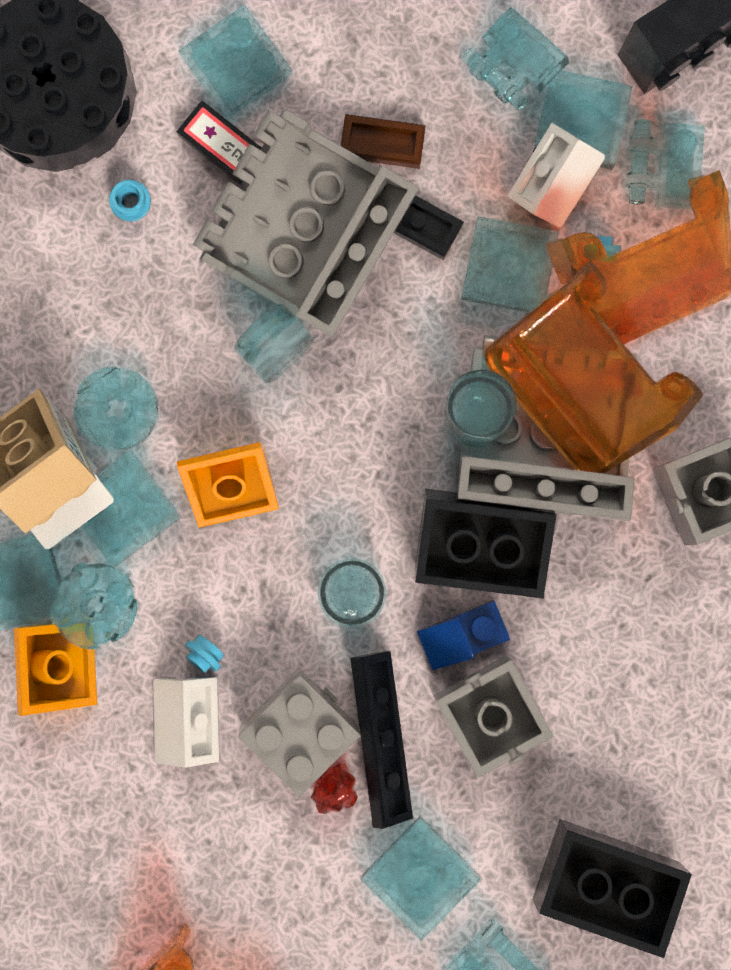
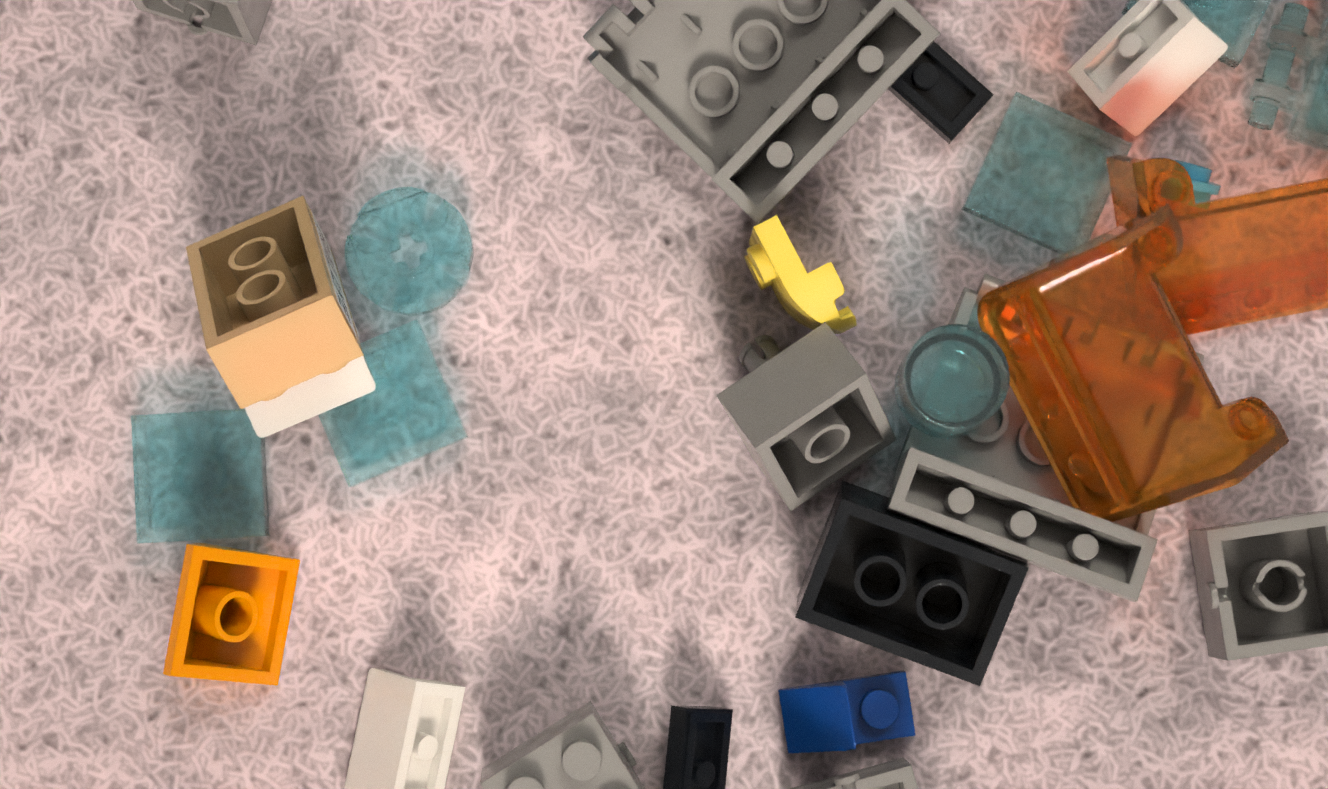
camera: 10 degrees right, 0 degrees up
(78, 589) = (287, 514): clear light blue plate -> none
(203, 654) = (454, 648): medium azure plate -> none
(229, 484) = (551, 405): light orange slope -> none
(273, 343) = (668, 211): clear light blue piece -> none
(352, 592) = (697, 609): clear light blue piece -> none
(372, 375) = (804, 295): none -> light yellow slope
(391, 451) = (806, 413): none -> light grey brick

